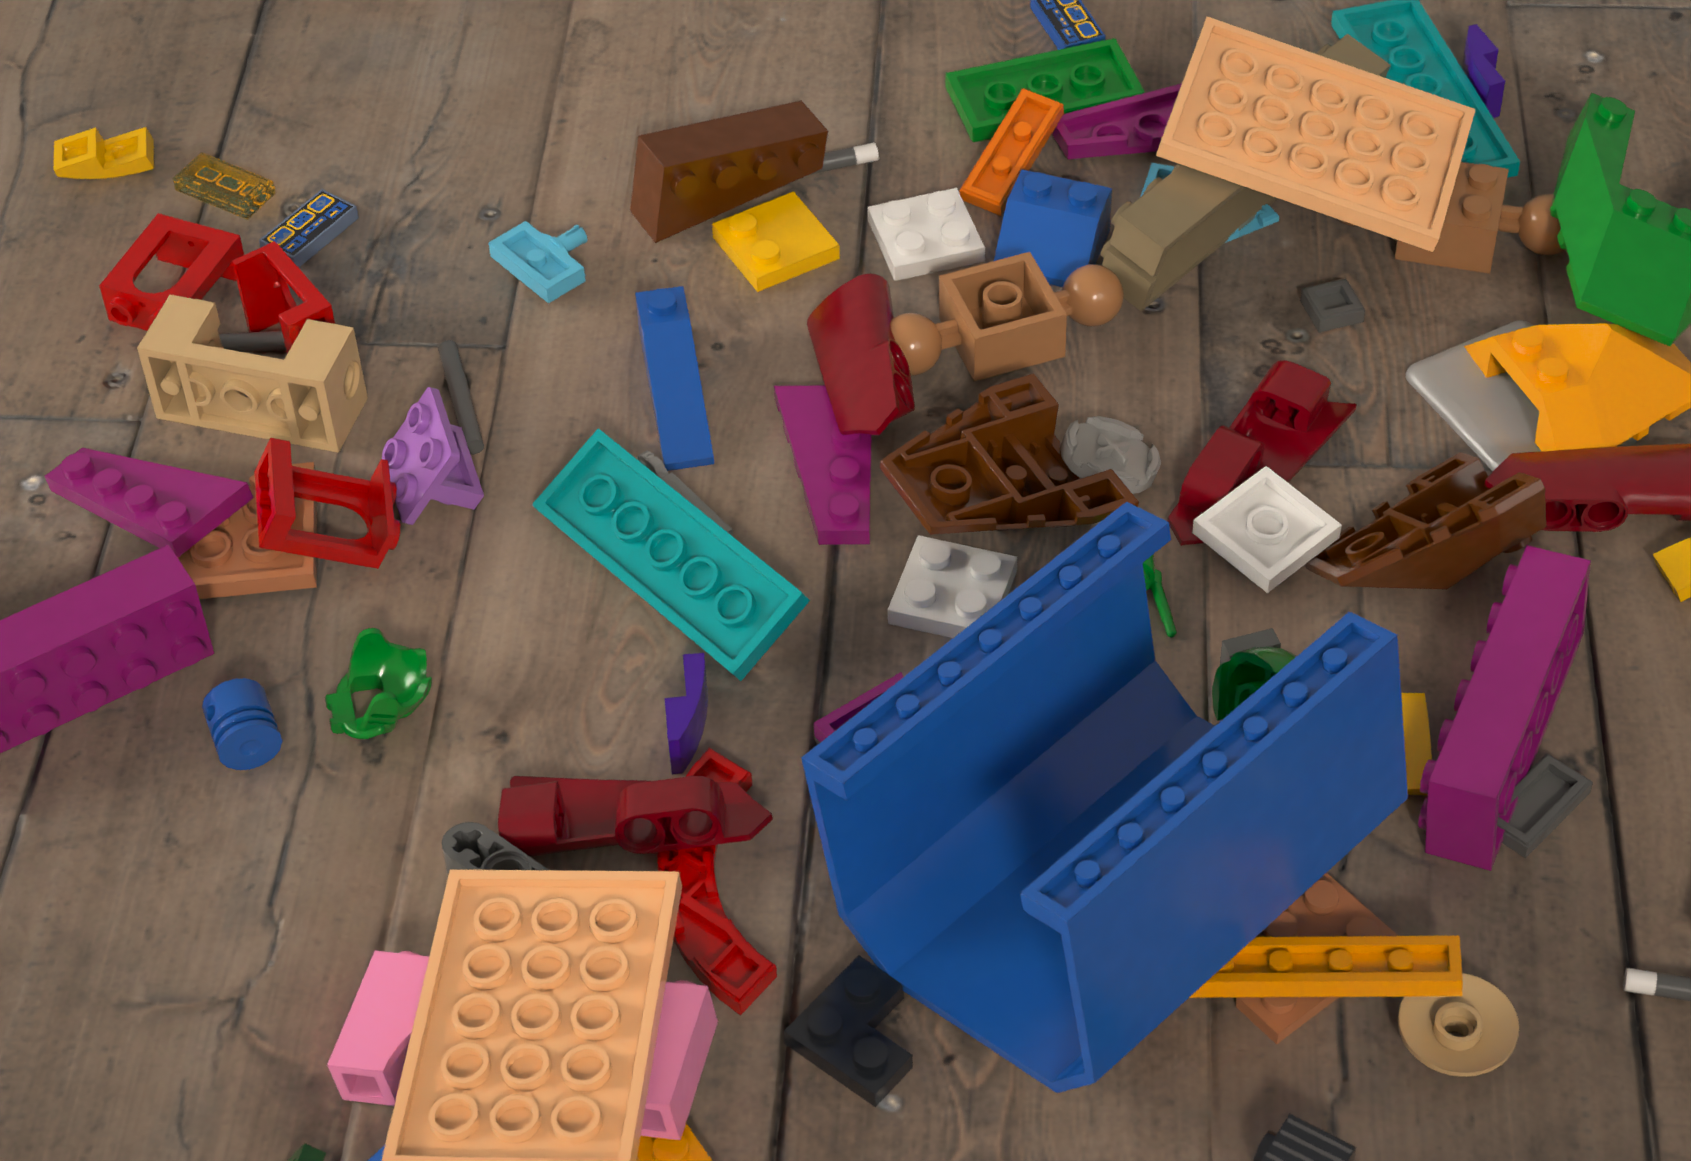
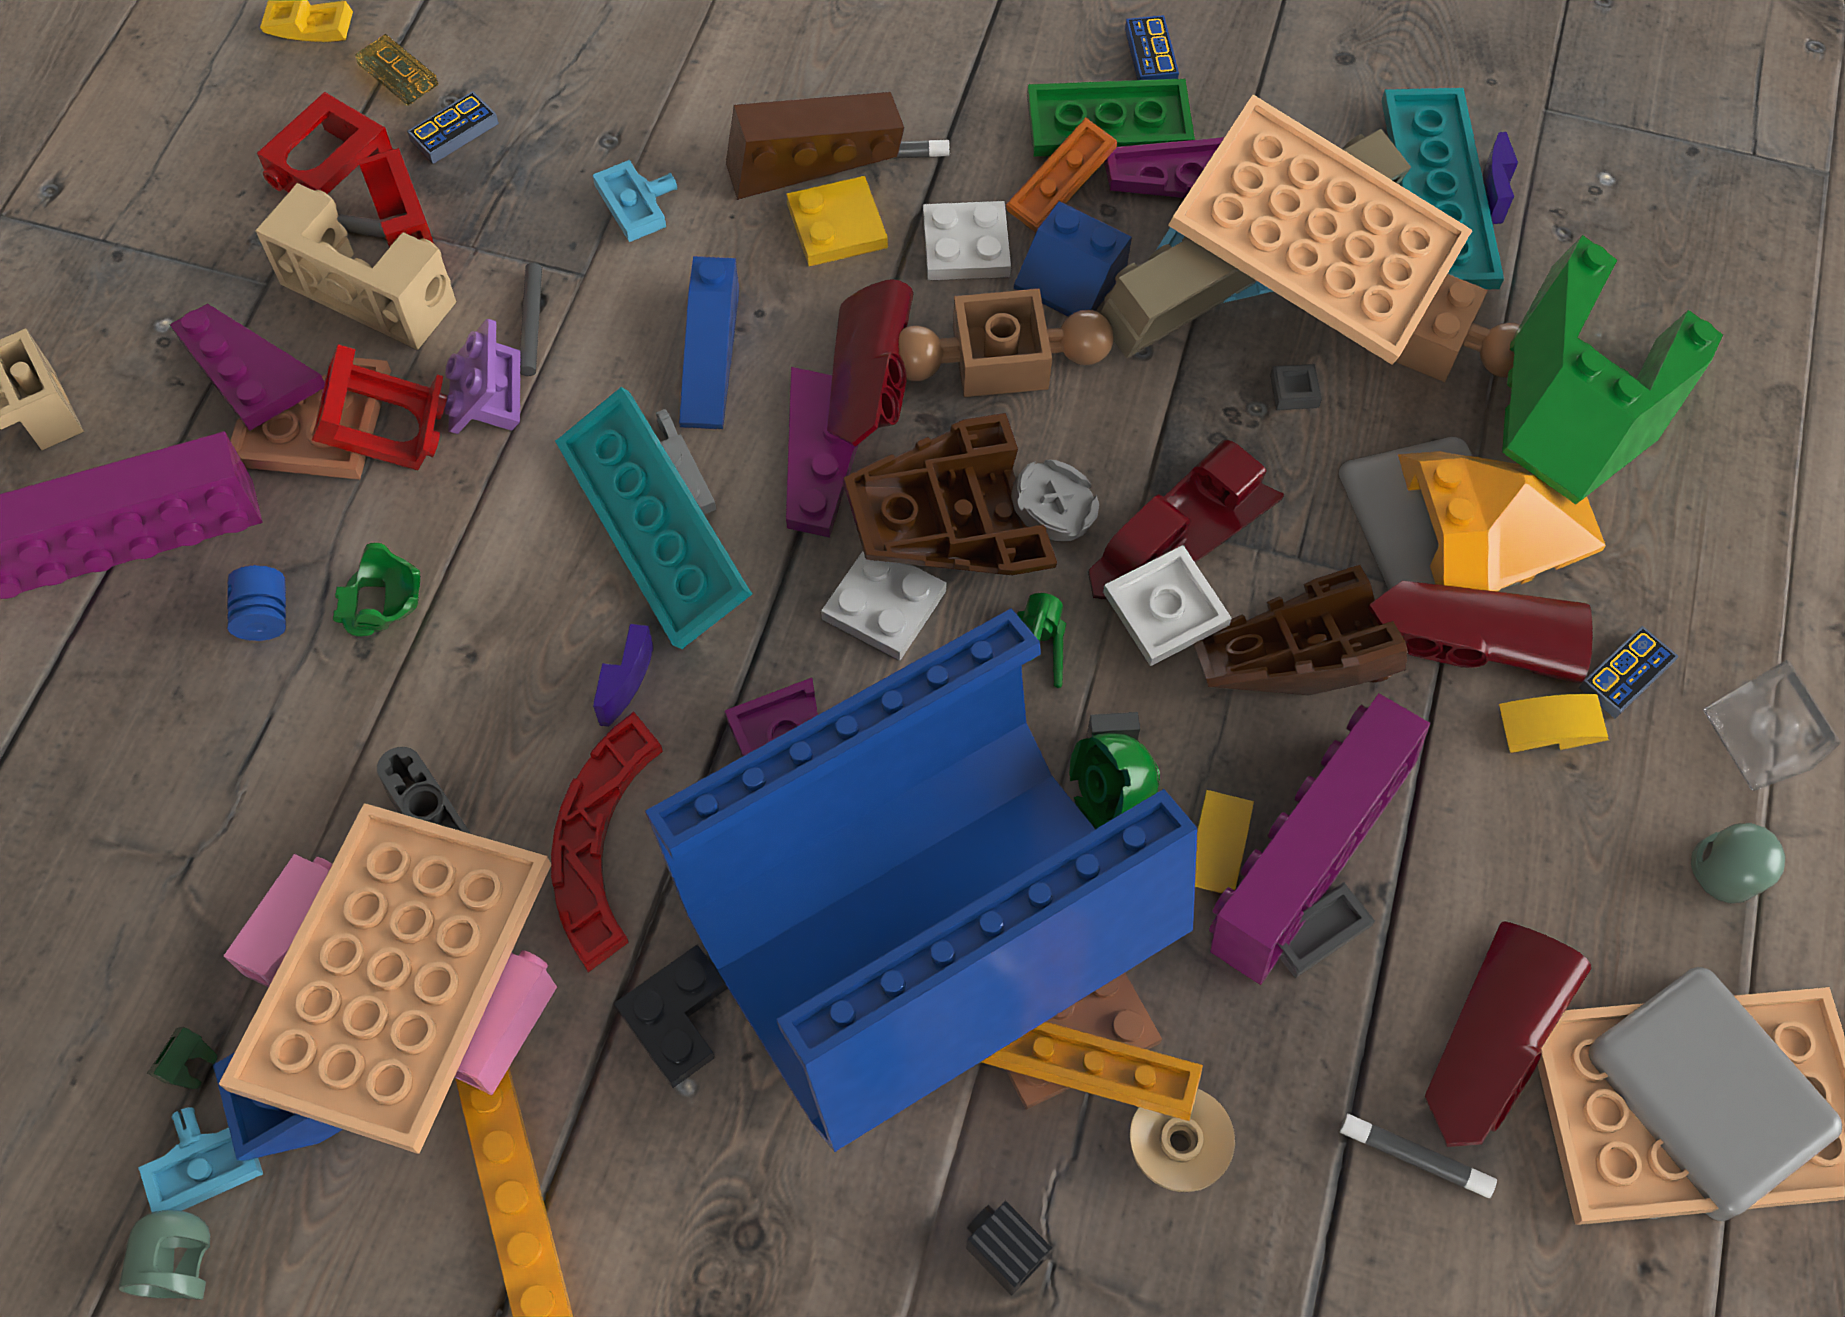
camera: 10 degrees right, 15 degrees up
(638, 815) = (542, 761): dark red panel -> none

